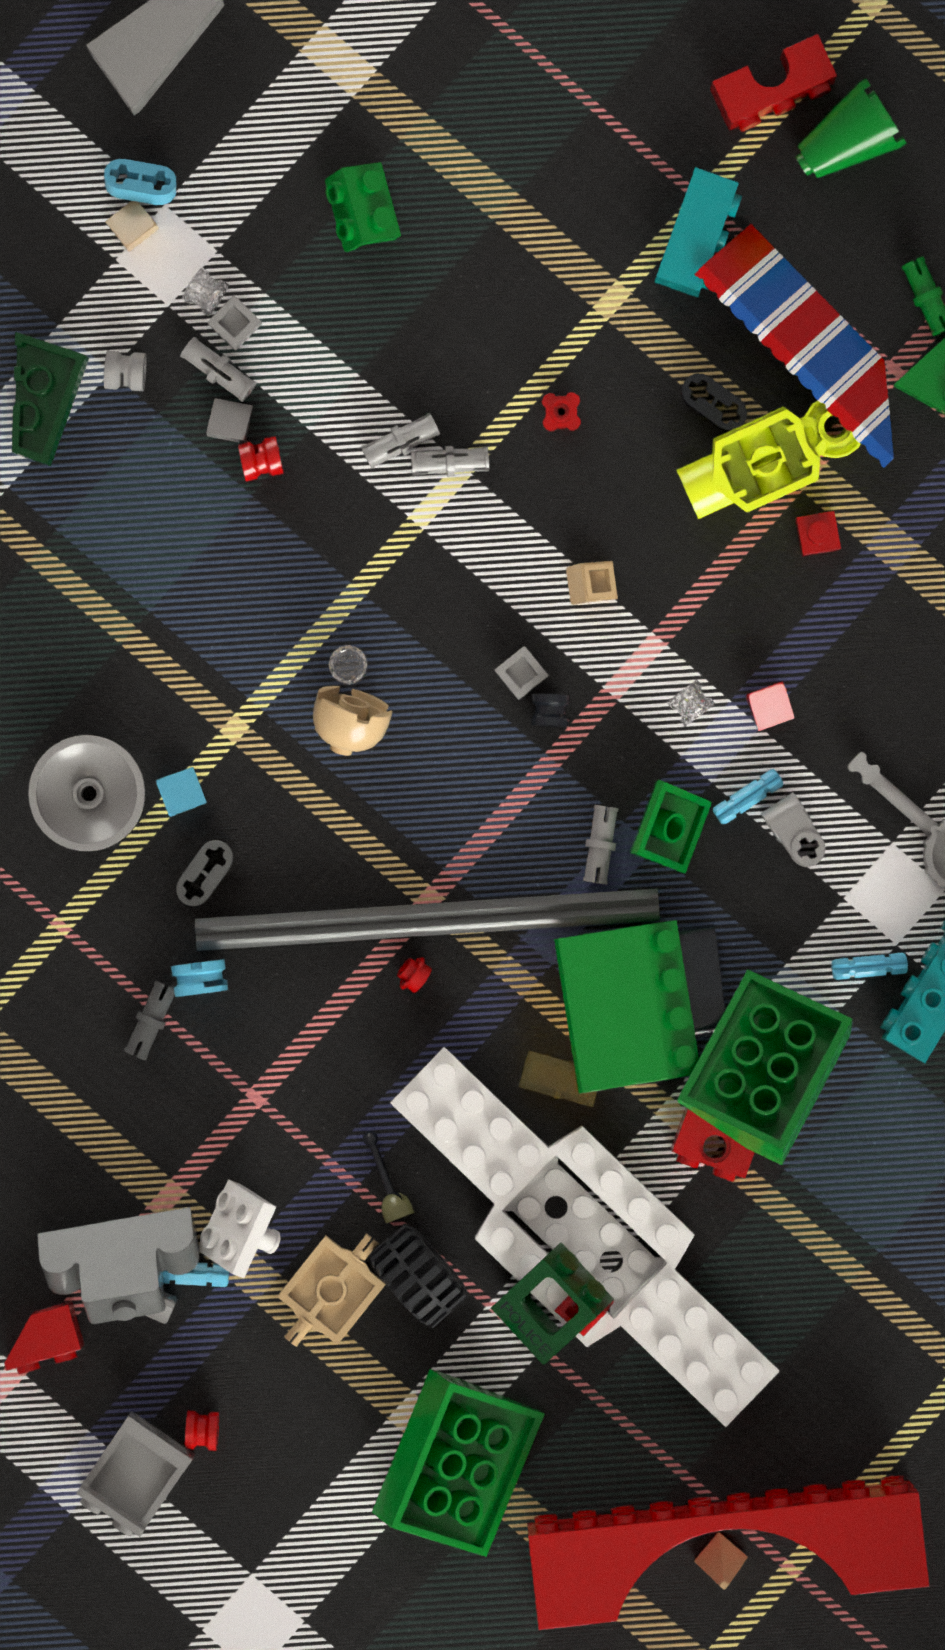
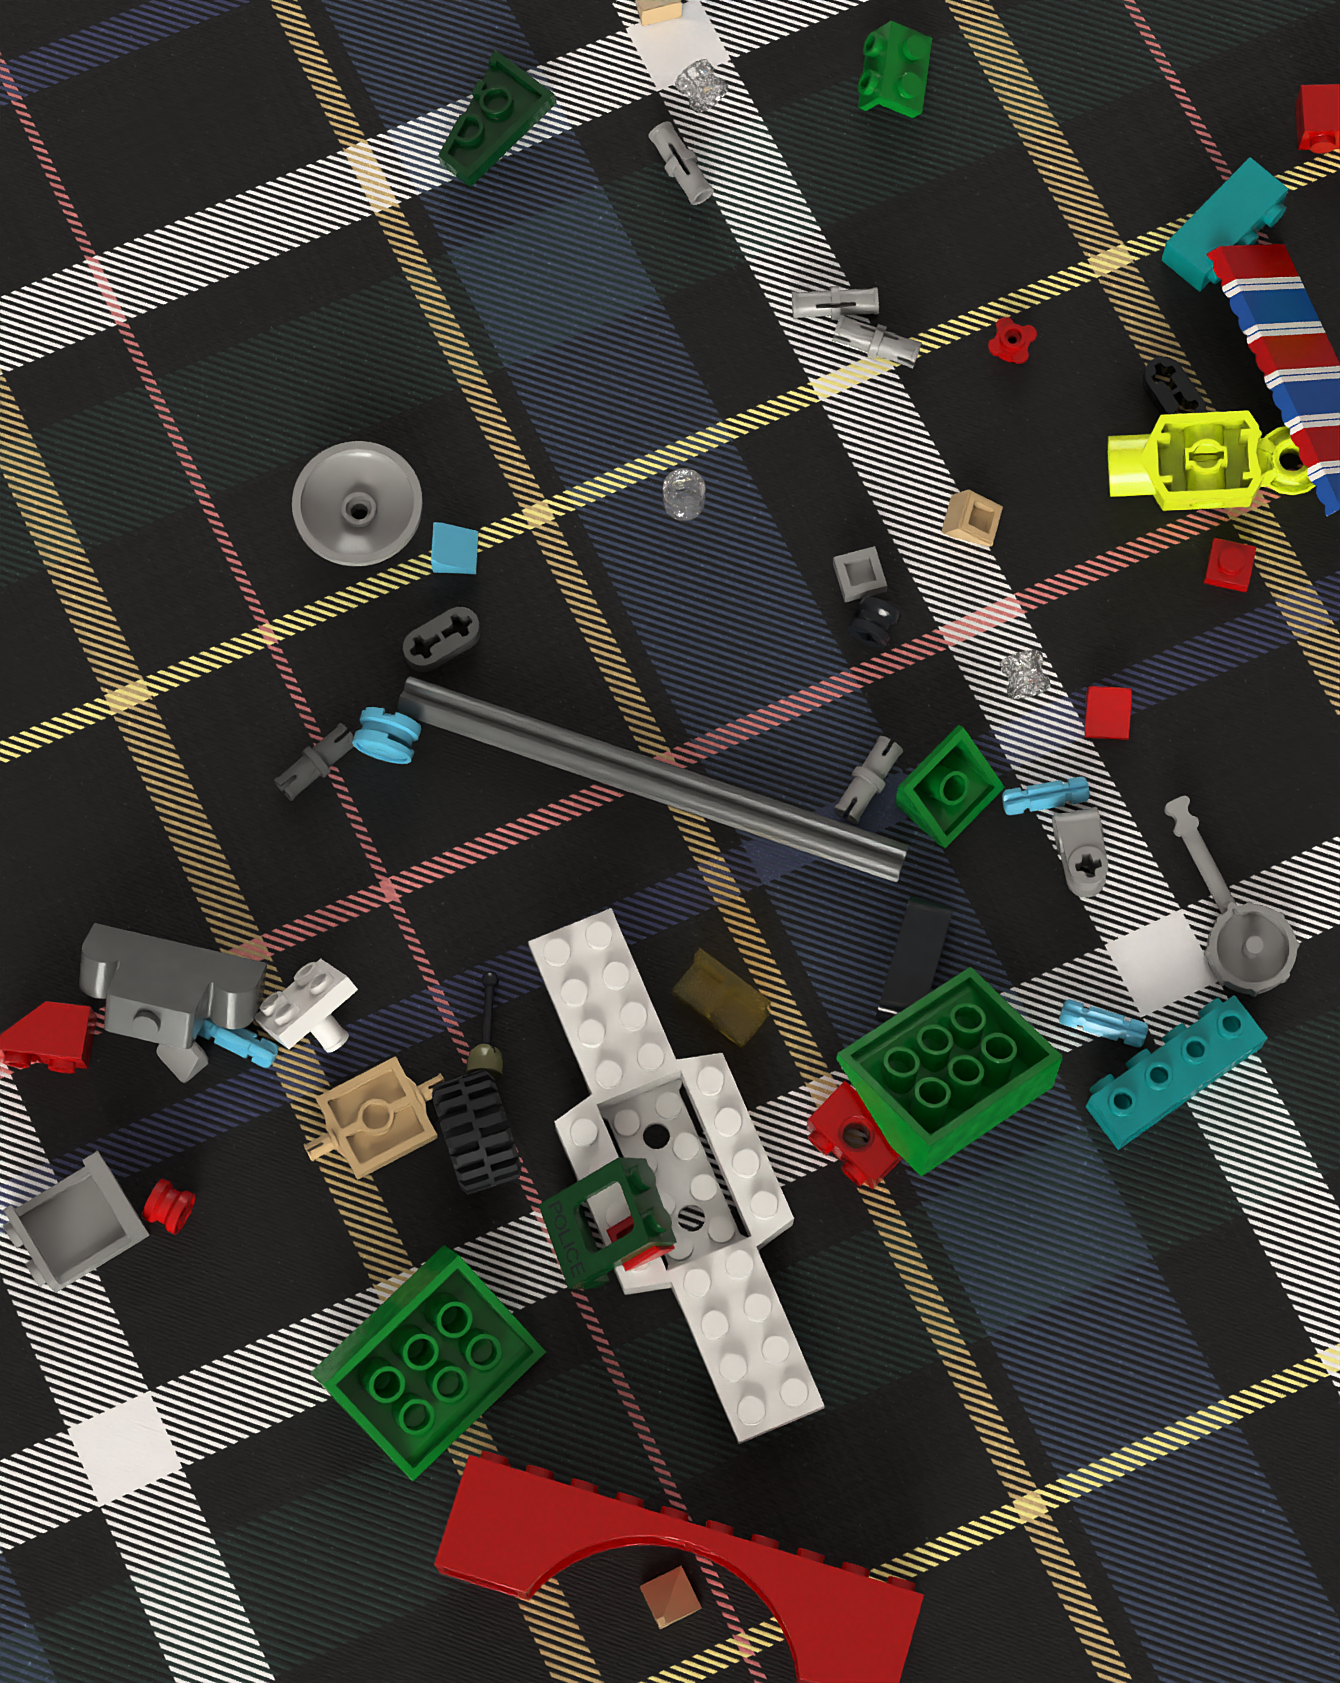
camera: 25 degrees right, 15 degrees down
(125, 370) = (586, 126): light grey wheel -> none
(229, 421) = (669, 218): light grey slope -> none
(234, 322) = (717, 126): light grey plate -> none
(260, 458) = (688, 261): red wheel -> none
(350, 721) = (659, 545): tan cylinder -> none
(414, 974) = (612, 827): red plate -> none
(627, 1006) = (824, 944): green slope -> none

